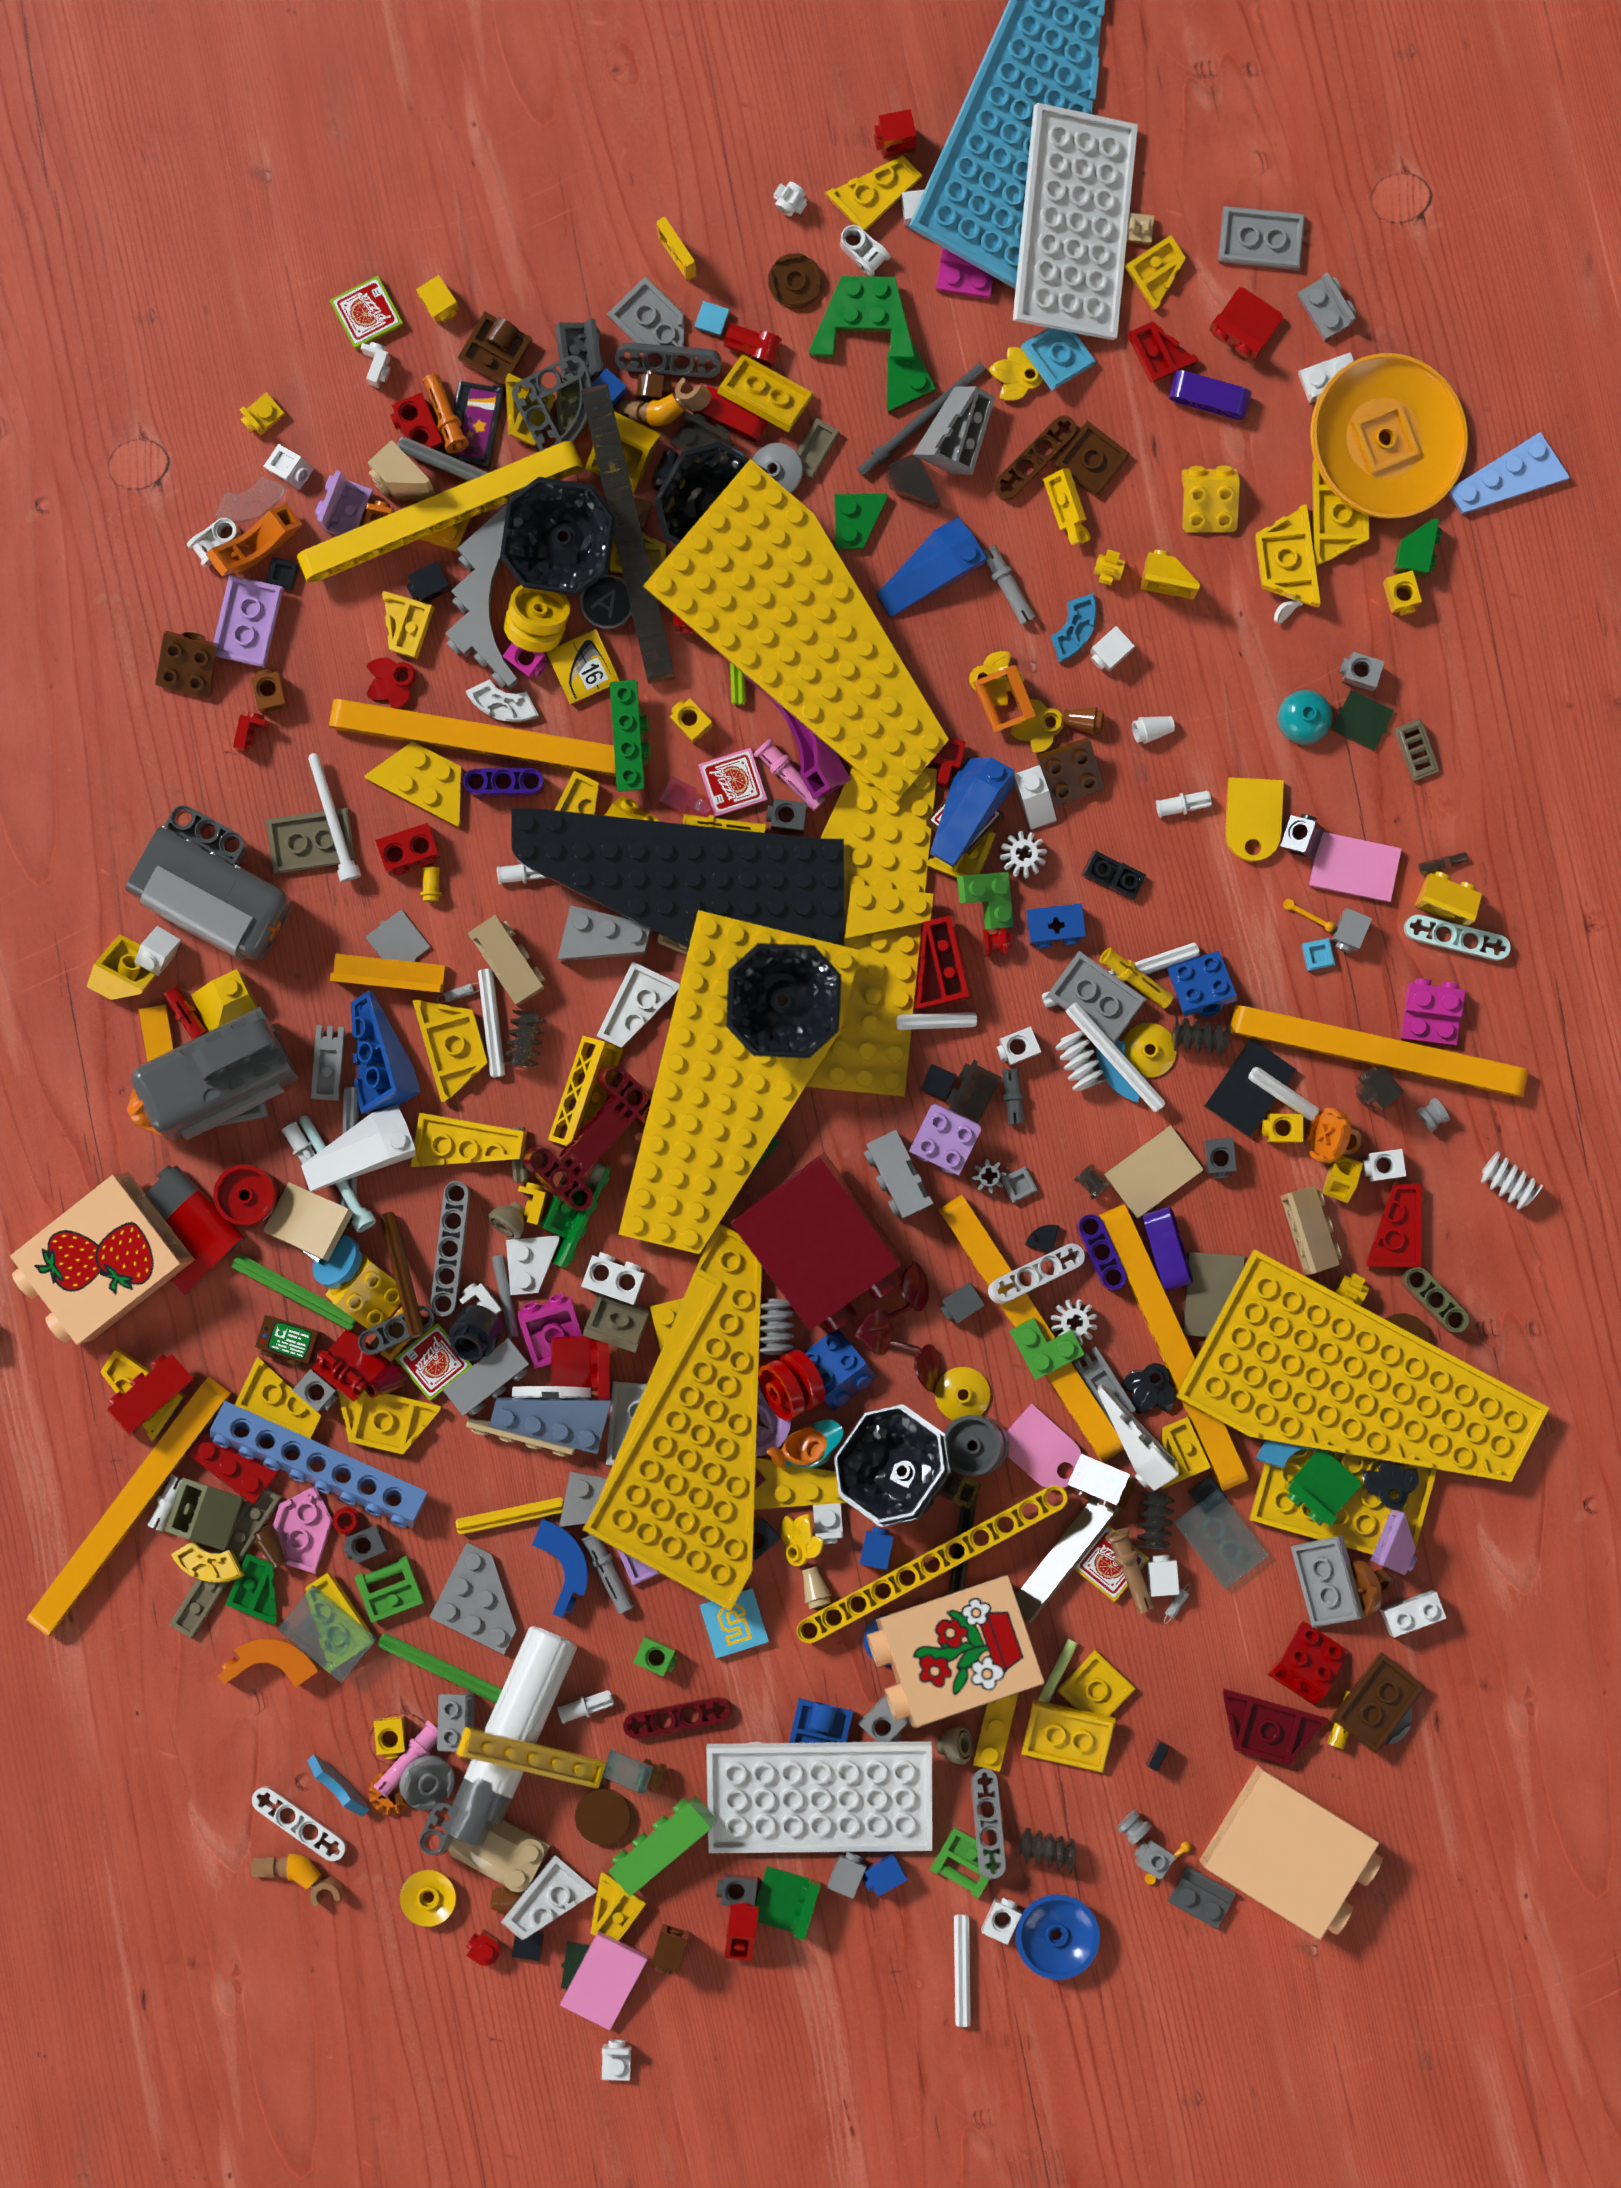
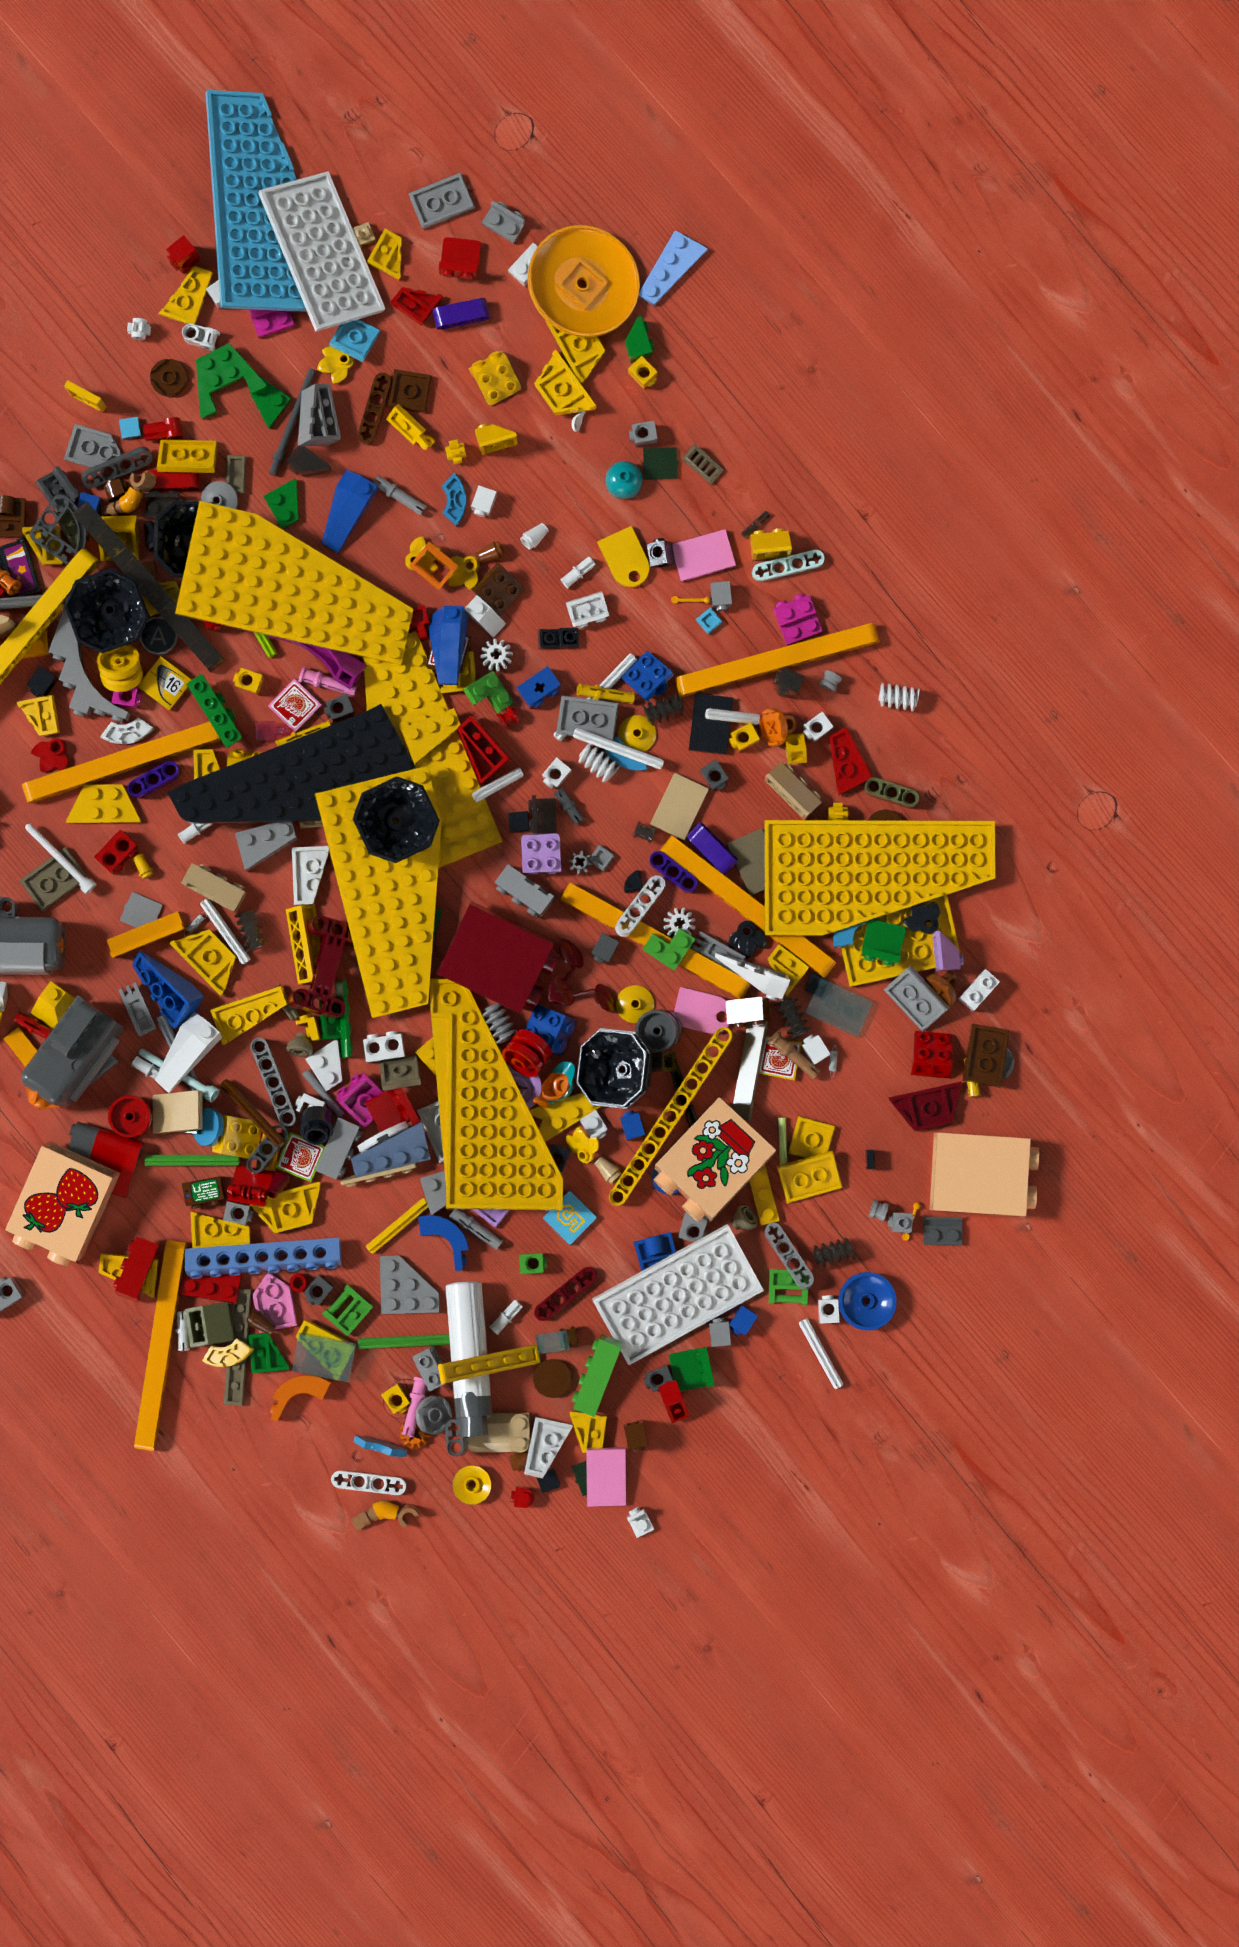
camera: 30 degrees left, 0 degrees up
(1170, 858) = (587, 609): none -> white bracket

